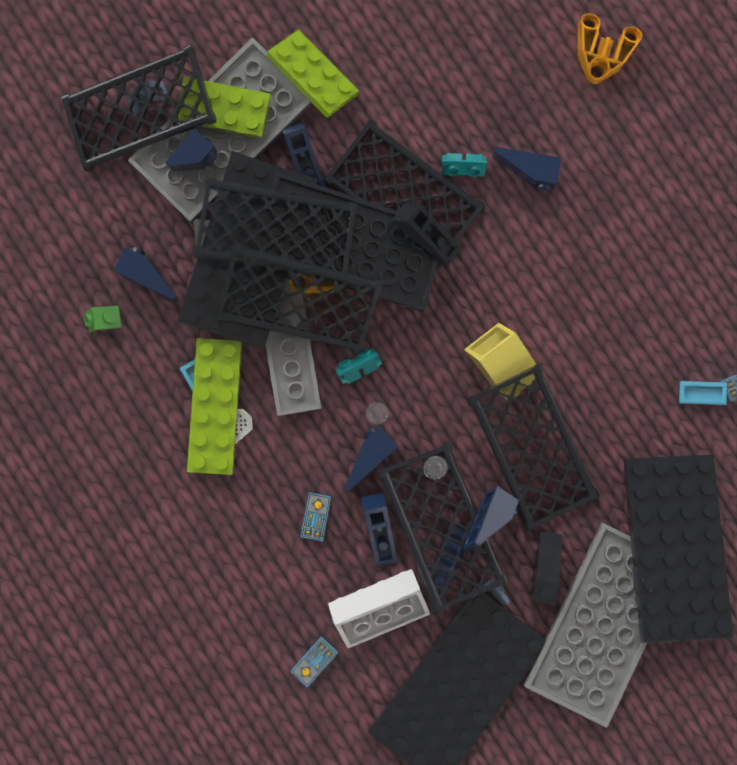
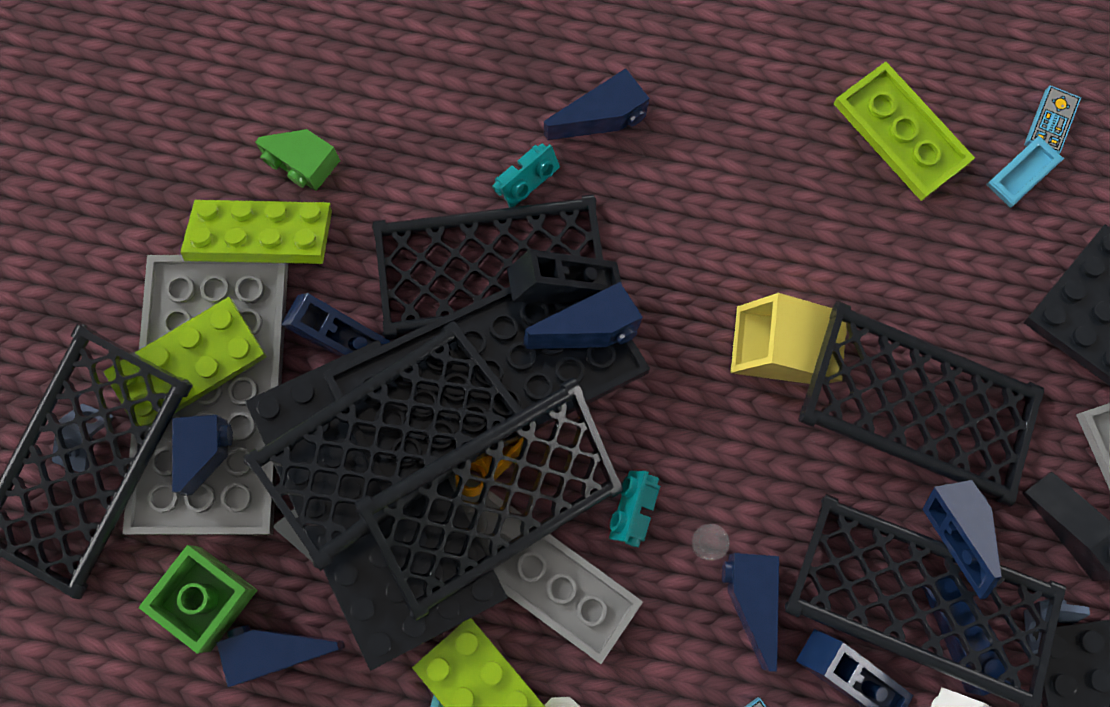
camera: 50 degrees left, 10 degrees down
(134, 220) = (198, 599): none -> bright green brick
(367, 53) = (301, 154): none -> bright green slope
(418, 264) = (589, 323): none -> dark blue slope
(435, 467) = (844, 537): clear tile -> none
(666, 317) = (903, 131): none -> lime plate

